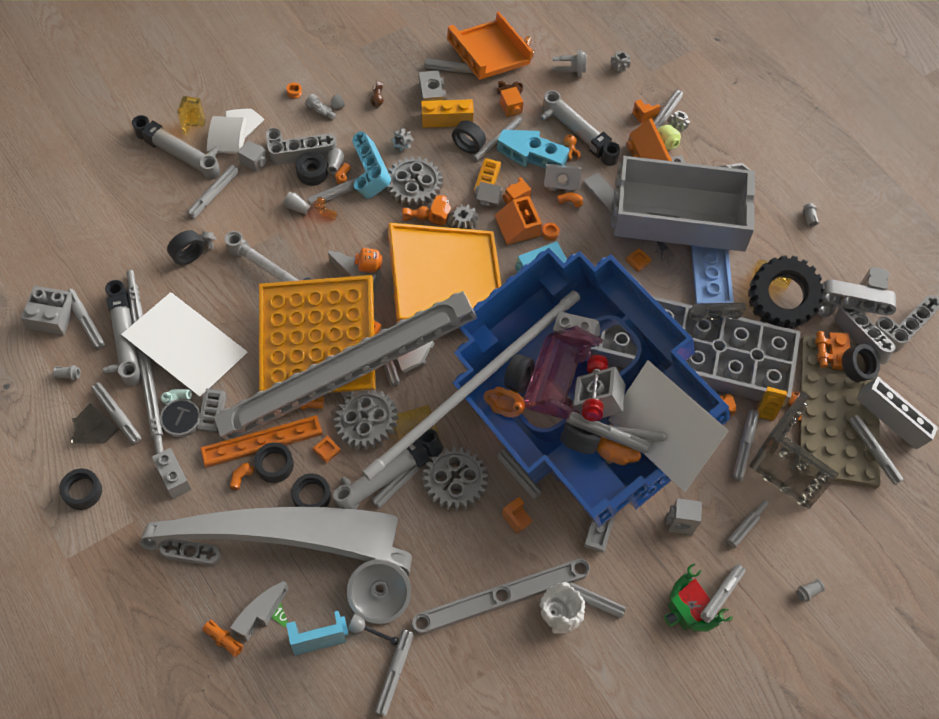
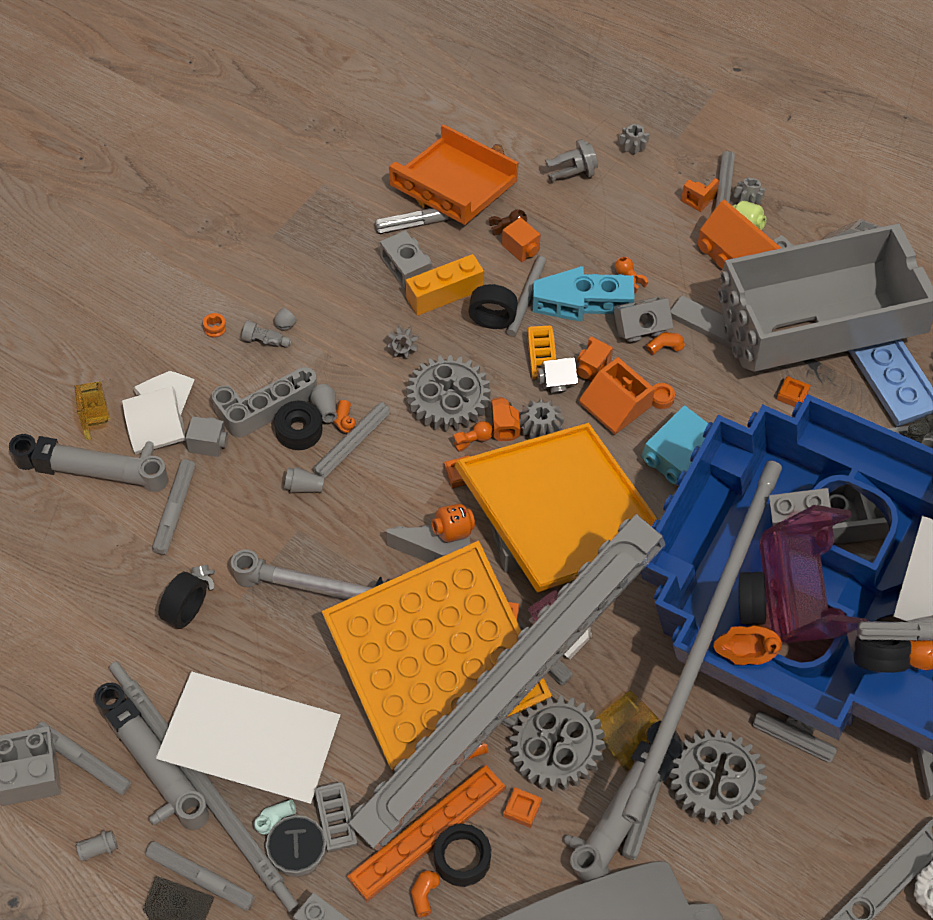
camera: 20 degrees left, 5 degrees down
(311, 479) = (535, 854): black tyre -> none
(323, 211) = (343, 477): clear orange arm -> none
(376, 99) = (337, 298): reddish brown arm -> none
(376, 175) = (391, 409): medium azure beam -> none
(516, 515) = (821, 795): orange panel -> none
(599, 143) = (663, 255): light grey piece -> none
(600, 391) = (874, 581): light grey brick -> none

